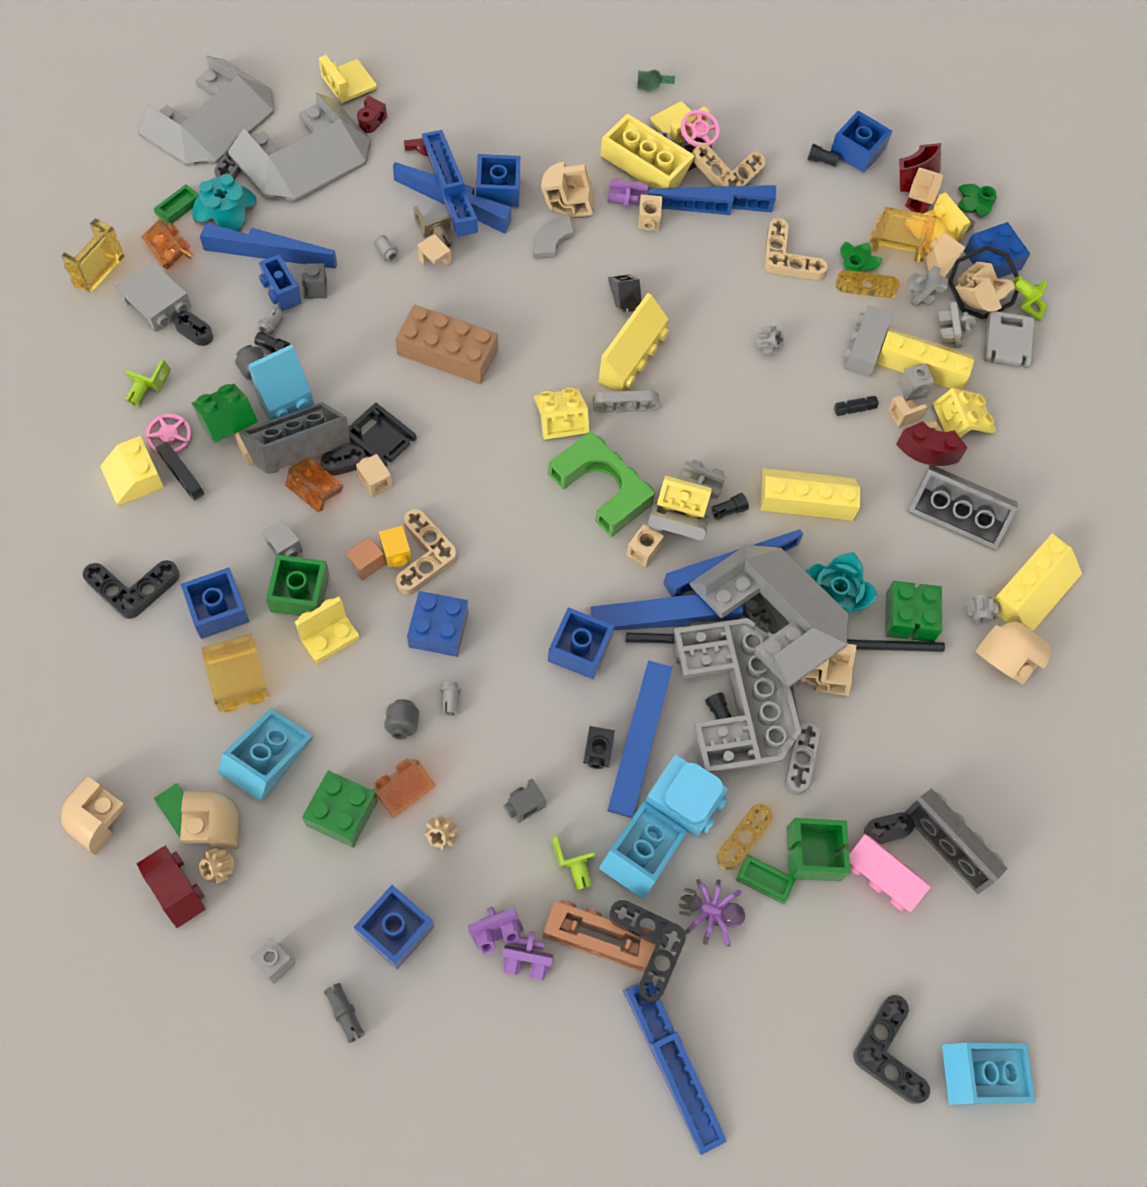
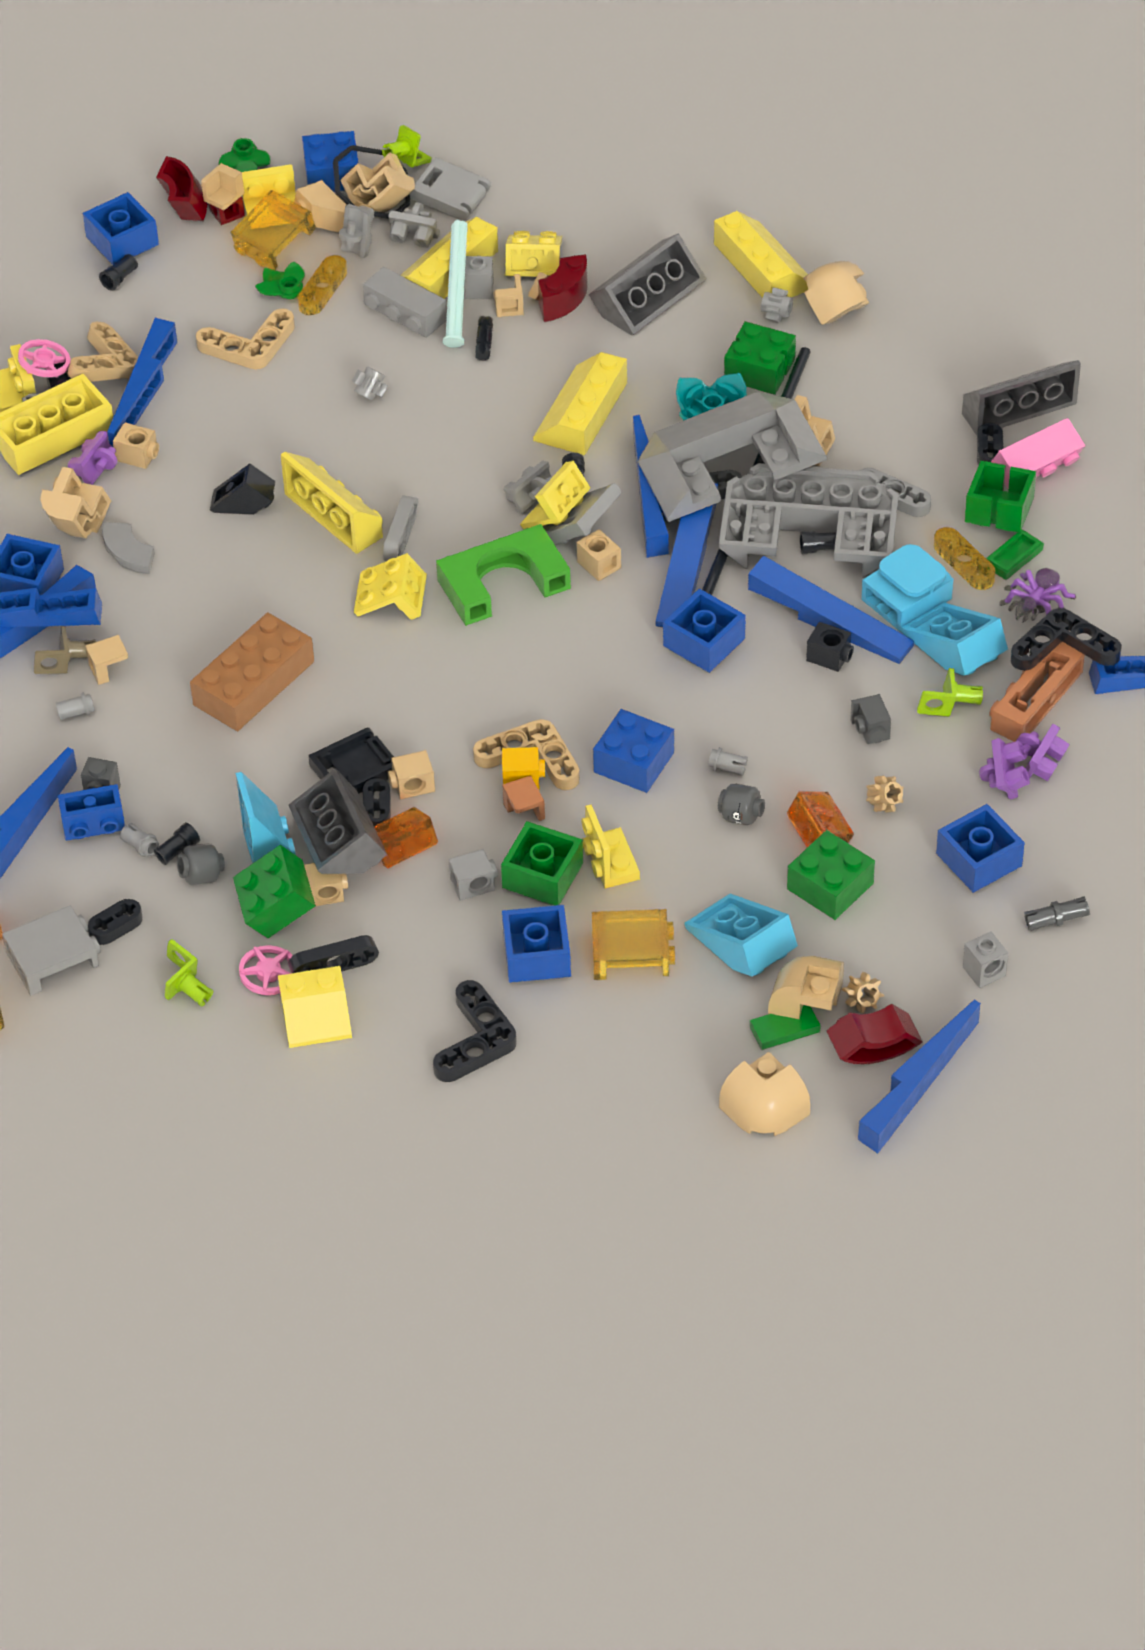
camera: 65 degrees left, 15 degrees down
(130, 930) = (915, 1077): none -> blue slope
(894, 365) = (456, 285): none -> light aqua axle

